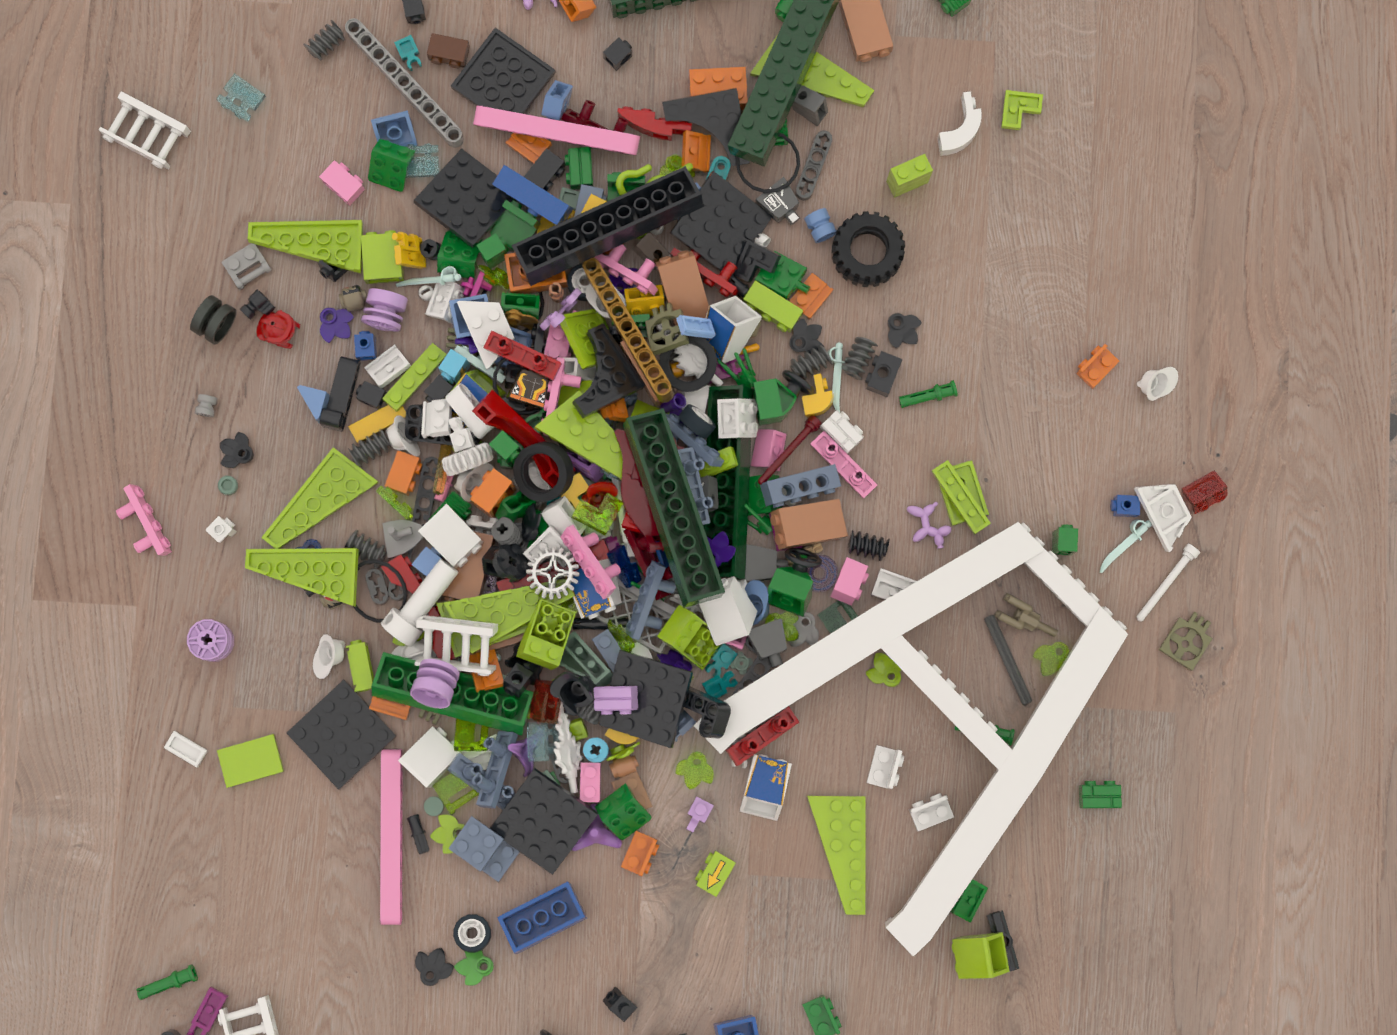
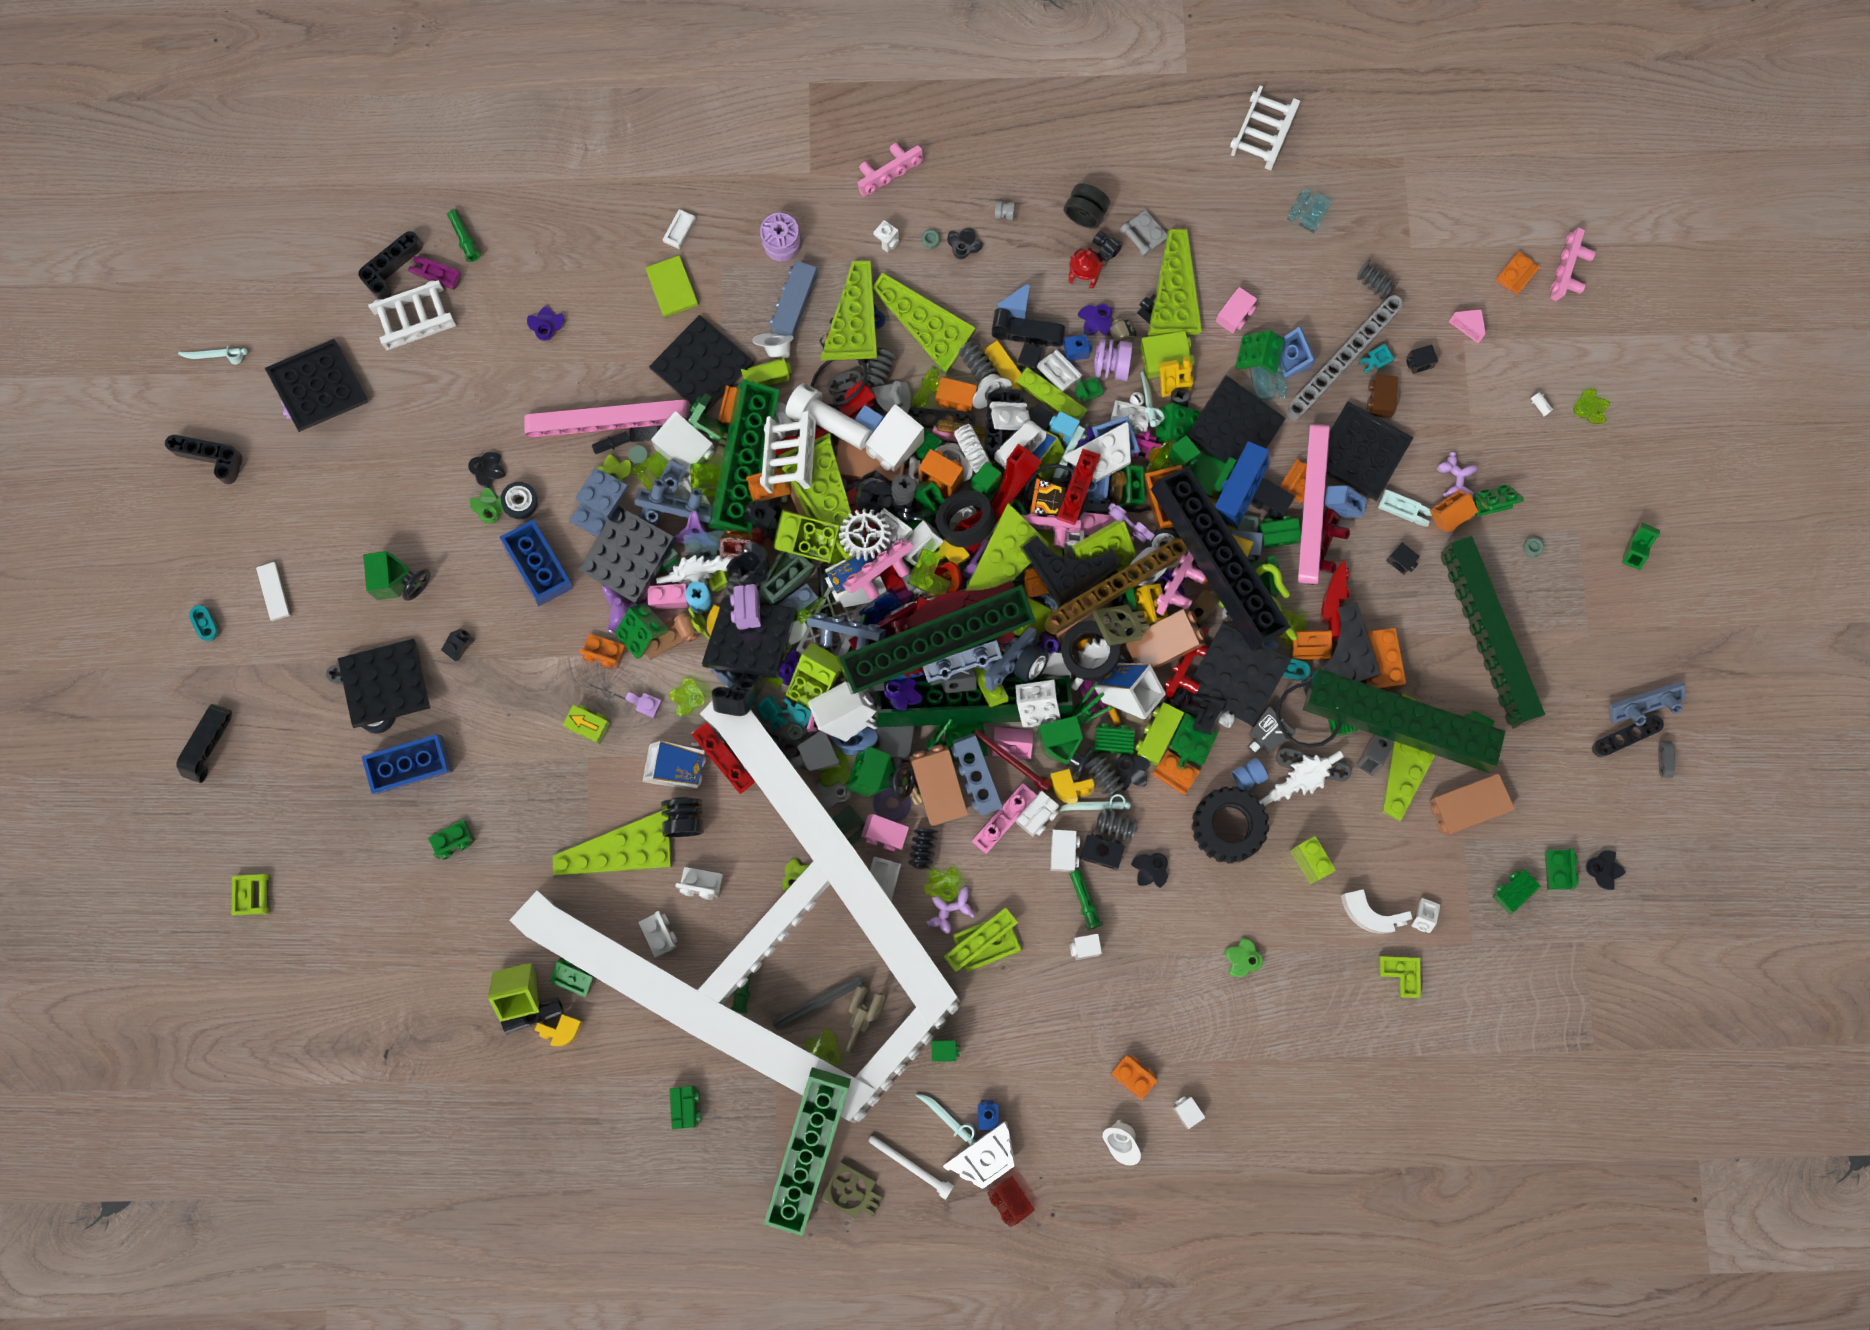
camera: 90 degrees right, 5 degrees down
(275, 897) = (545, 321): none -> dark purple plate
(280, 631) = (794, 299): none -> sand blue brick
(408, 733) = (703, 421): none -> green bracket
(410, 339) = (1088, 390): none -> green bracket
(410, 795) = (643, 433): none -> black sticker
(435, 683) = (748, 434): lavender wheel -> none
(461, 437) = (992, 438): white plate -> none
(556, 292) = (1149, 518): nougat pin -> none
(565, 46) = (1404, 507): none -> light aqua hinge
(695, 326) = (1125, 651): light blue plate -> none
(775, 351) = (1114, 740): none -> green brick
(820, 780) = (682, 817): none -> black wheel
(825, 172) = (1307, 776): none -> white piece
(880, 410) = (1064, 851): none -> white piece
(901, 531) = (940, 883): none -> clear neon green plate
(966, 78) = (1426, 915): none -> white bracket
(975, 397) = (1085, 947): none -> white piece
(994, 255) = (1240, 958): none -> bright green plate
(1023, 910) = (565, 1033): none -> yellow brick
(1133, 319) = (1188, 1111): none -> white brick
(1153, 675) = (807, 1151): none -> green brick

